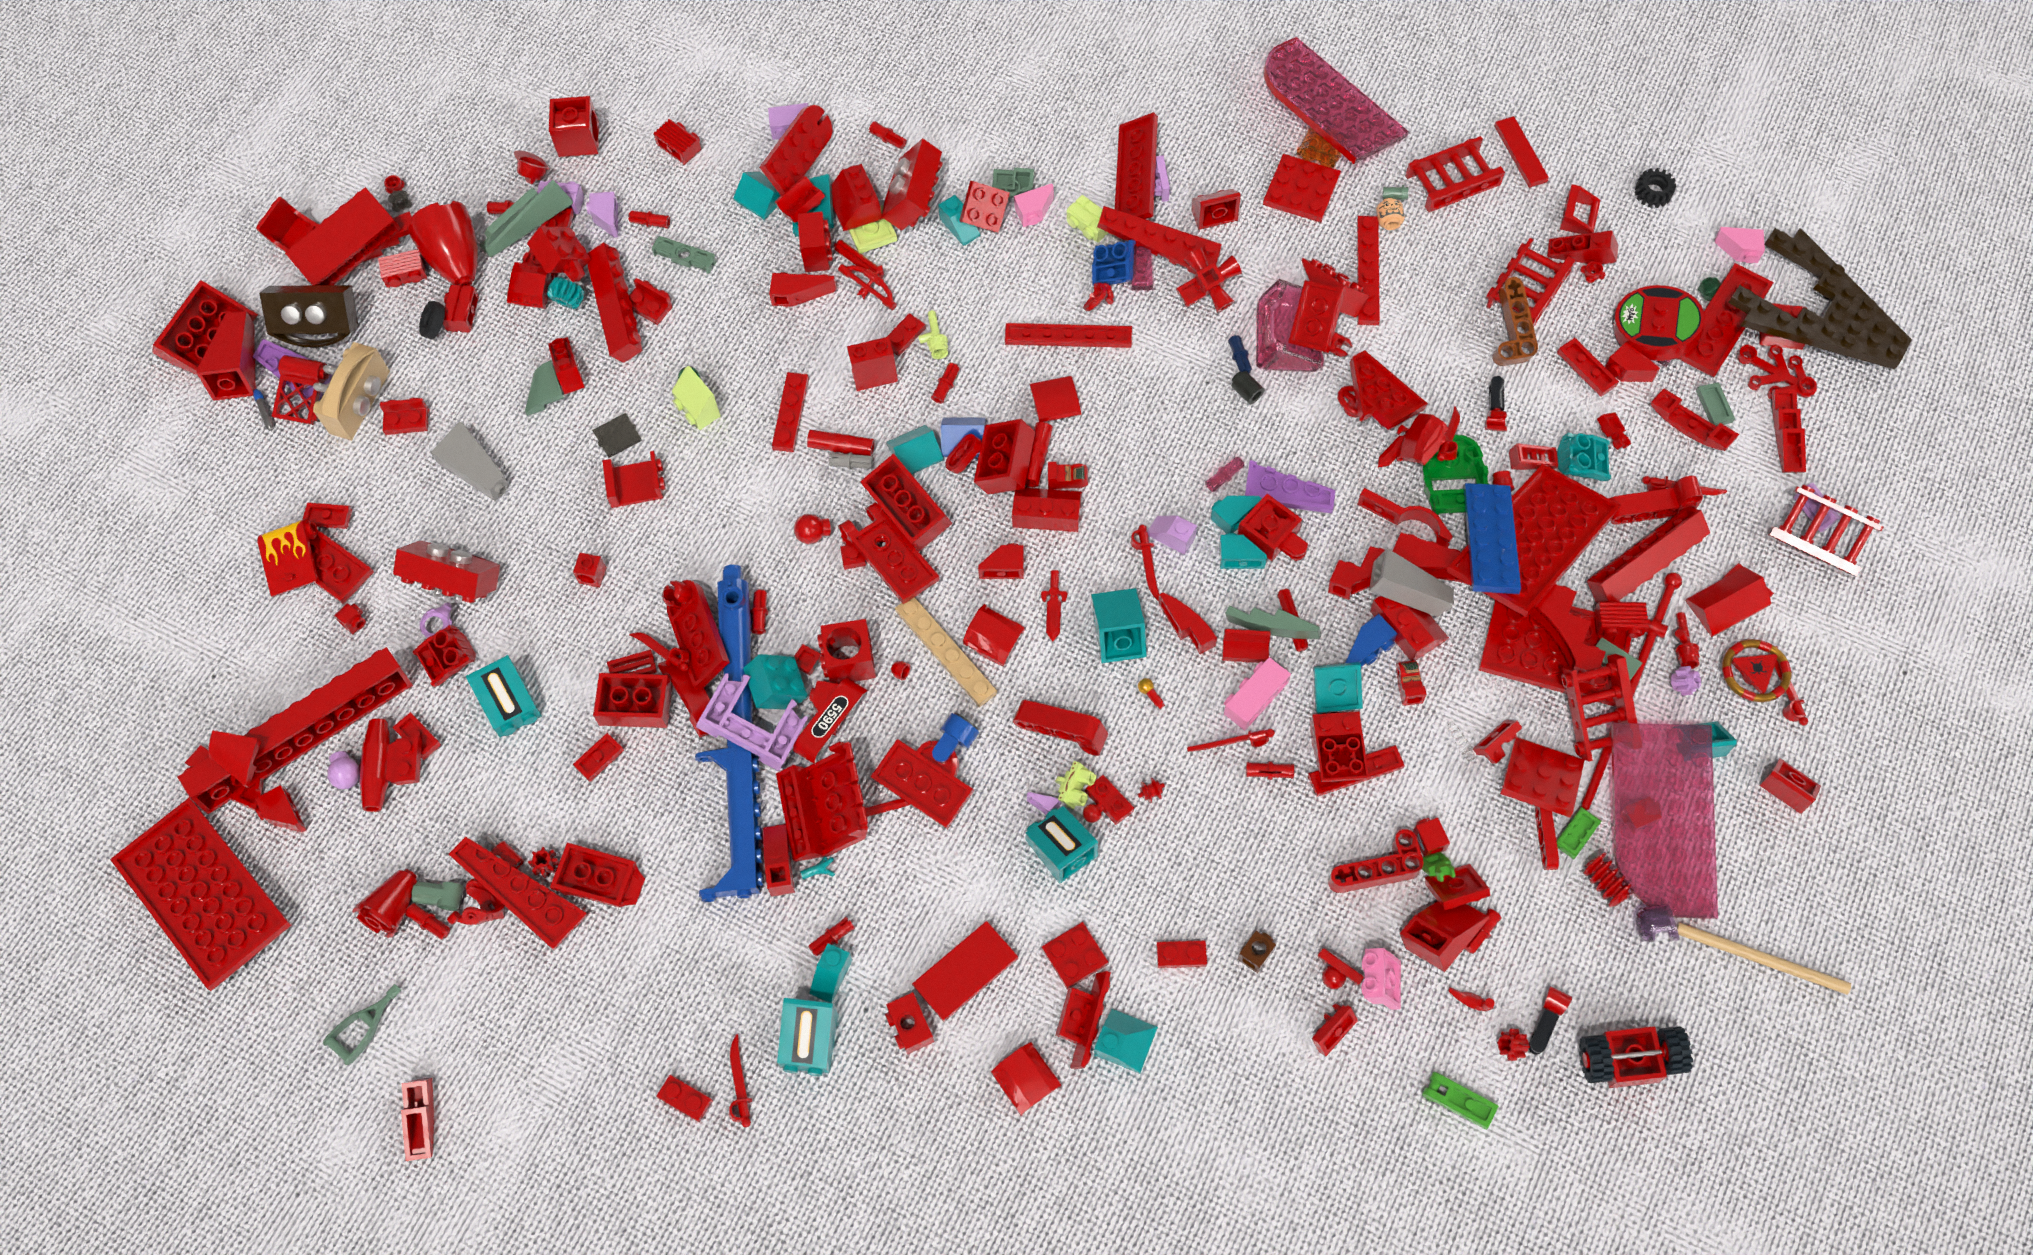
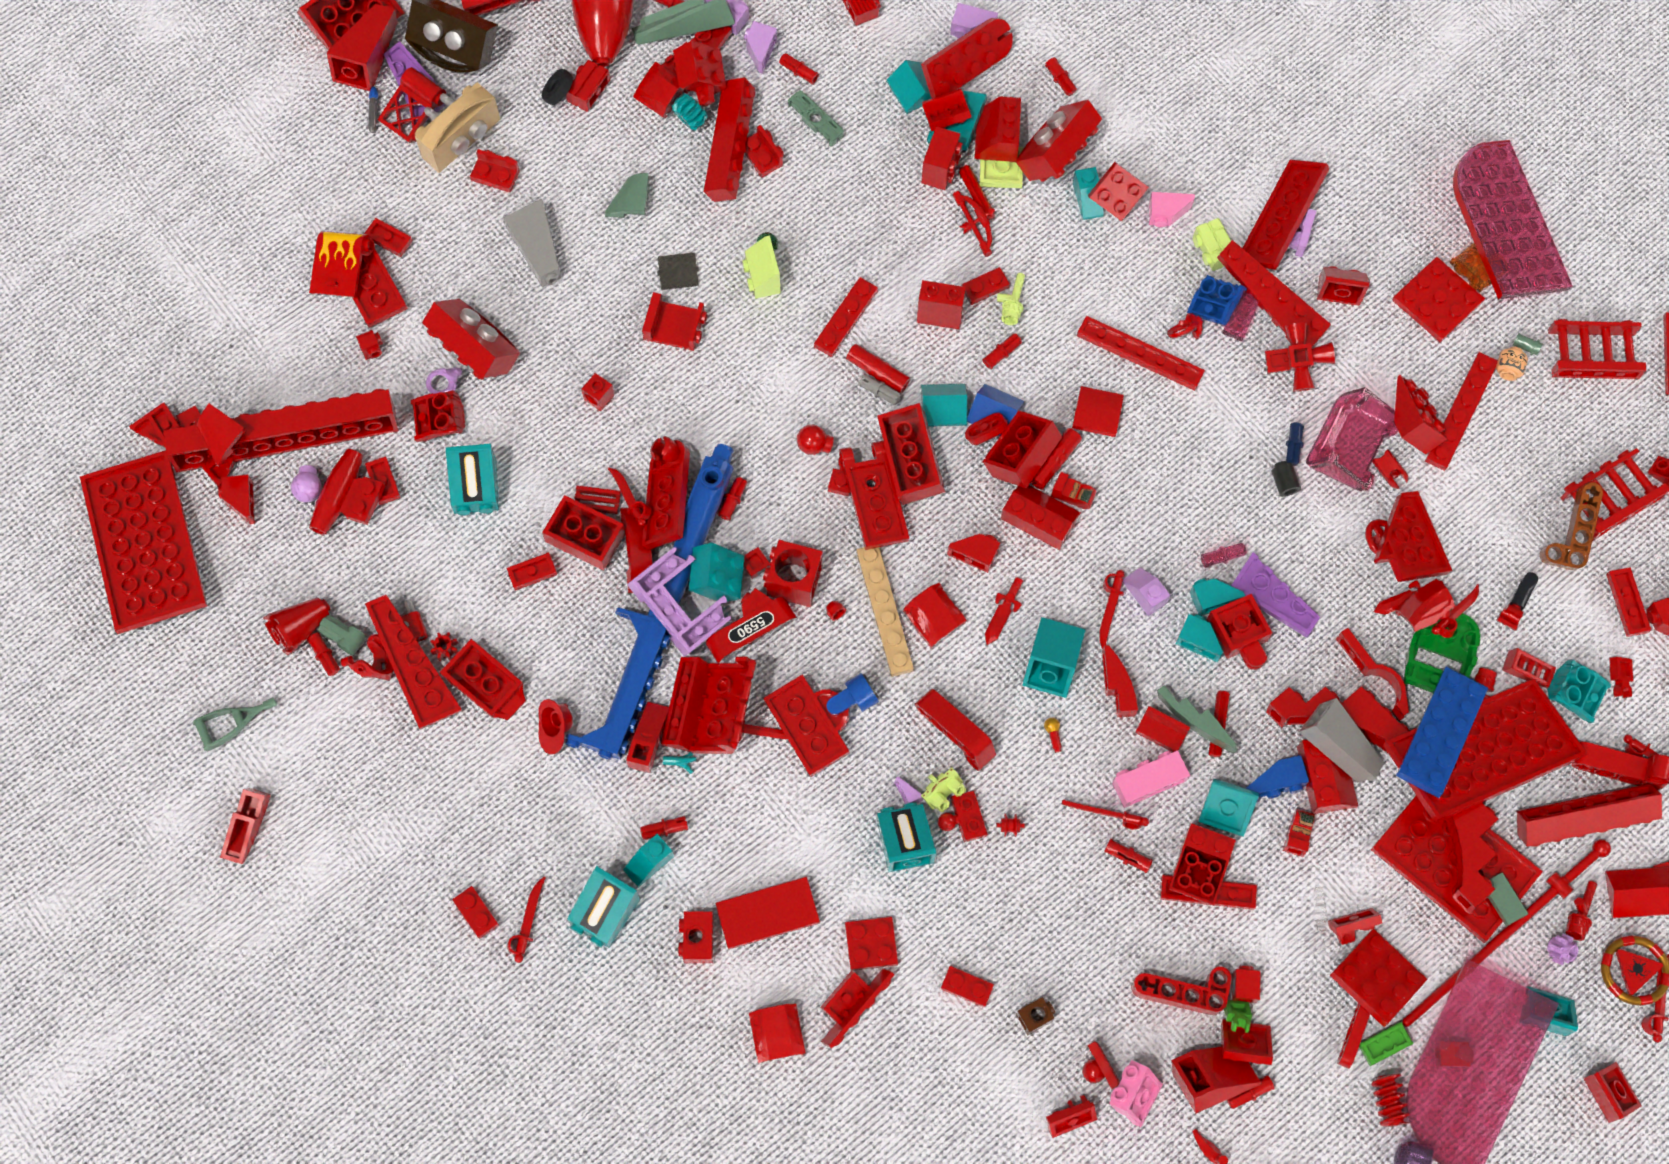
camera: 20 degrees right, 5 degrees up
(165, 780) = (154, 423): none -> red wing
(402, 268) = (551, 23): brick -> none
(565, 365) = (660, 183): red slope -> none
(682, 887) = (553, 724): none -> red piece
(799, 288) = (907, 198): red slope -> none
(1013, 181) = (1159, 175): sand green slope -> none
(1125, 1041) = (880, 1040): teal slope -> none
(1316, 316) = (1384, 439): red tile -> none
(1619, 691) = (1489, 932): red fence -> none
(1621, 619) = (1529, 863): red brick -> none

